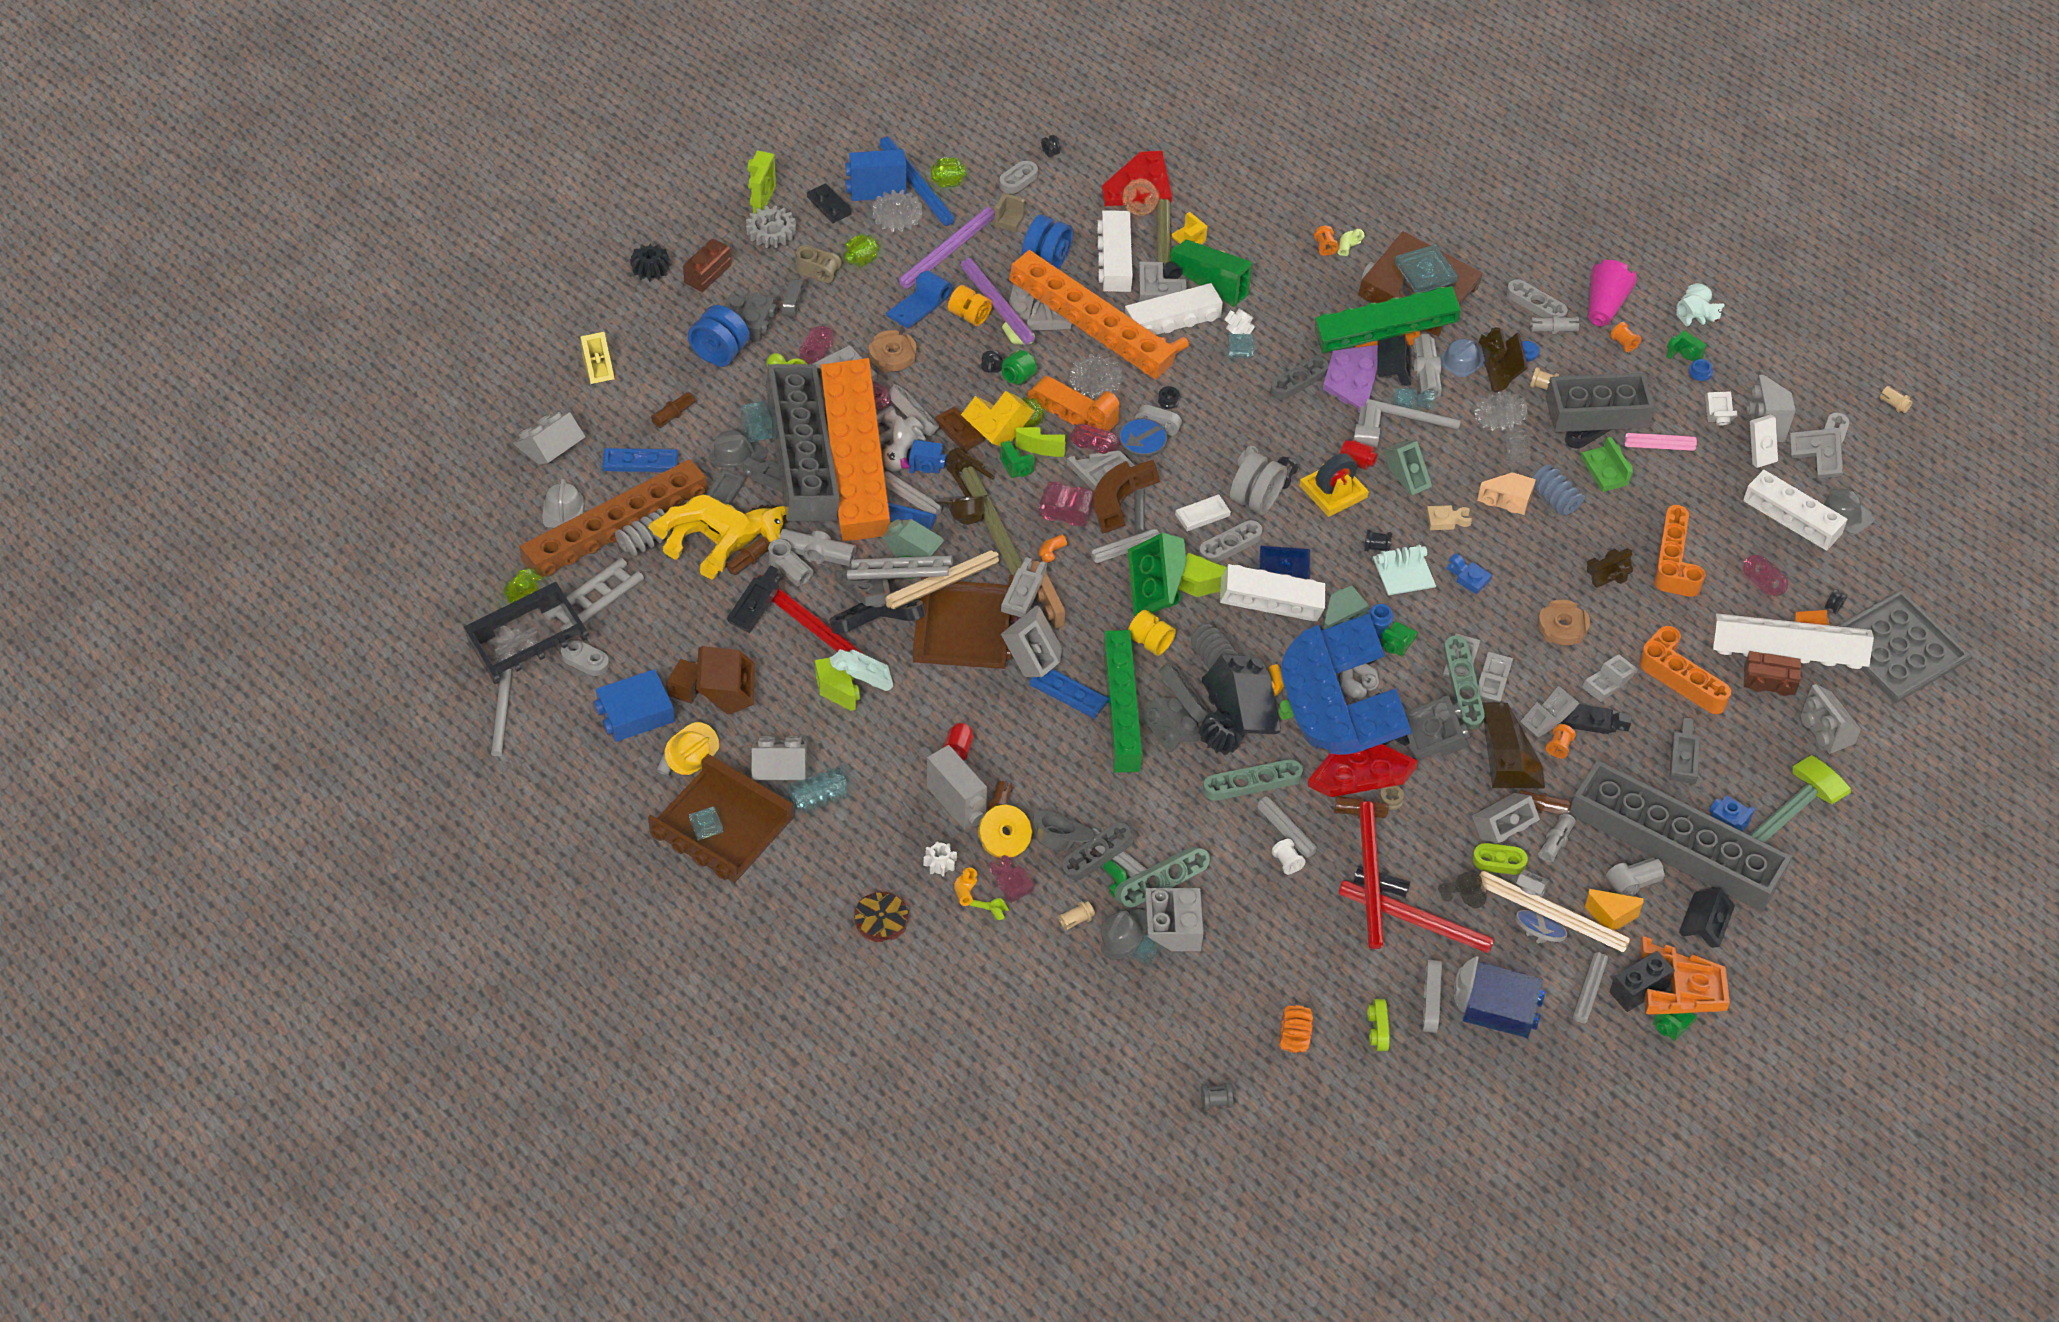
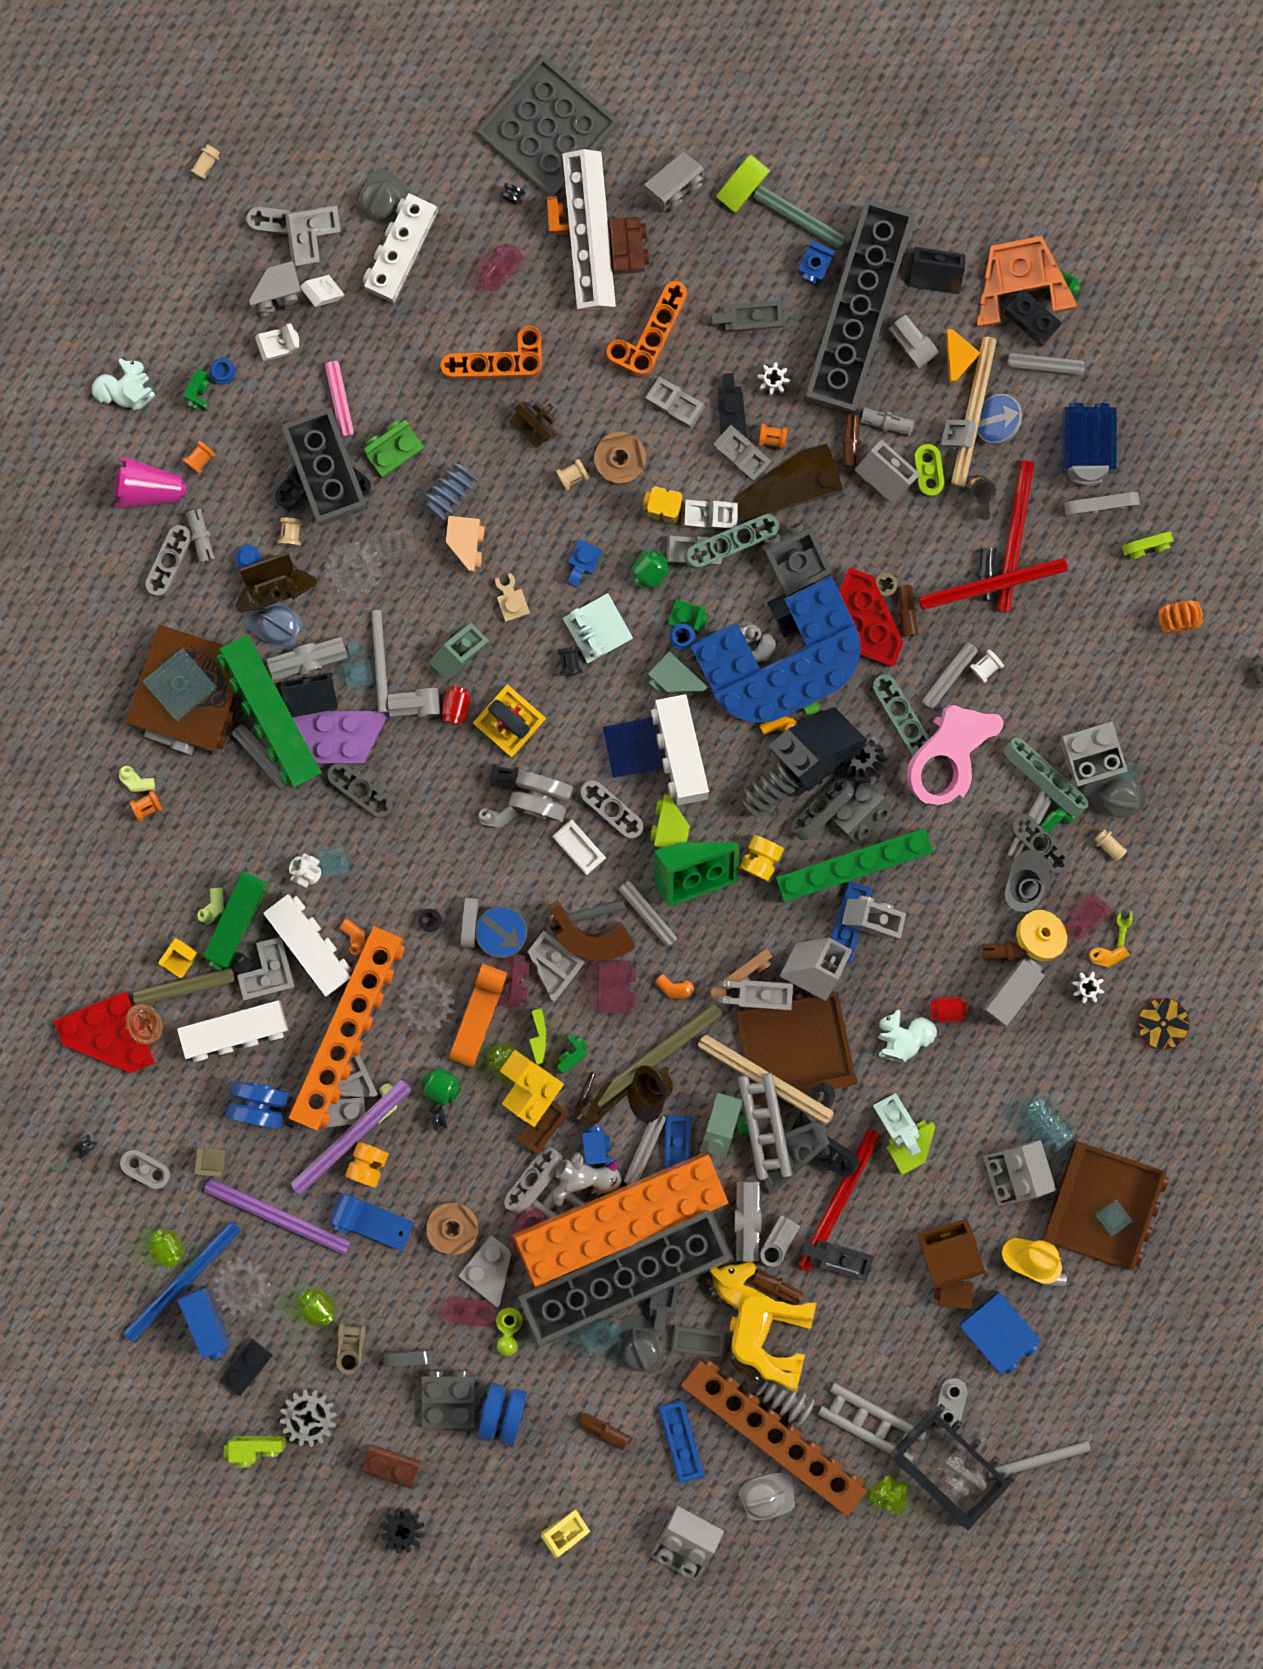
camera: 105 degrees left, 35 degrees up
(940, 699) = (905, 1043): none -> light aqua animal
(1066, 695) = (873, 917): none -> light grey brick
(1223, 807) = (957, 736): none -> bright pink animal
(1451, 617) = (650, 569): none -> green head
(1511, 631) = (662, 505): none -> yellow brick
(1555, 583) = (572, 474): none -> tan bush
(1618, 754) = (766, 382): none -> white gear

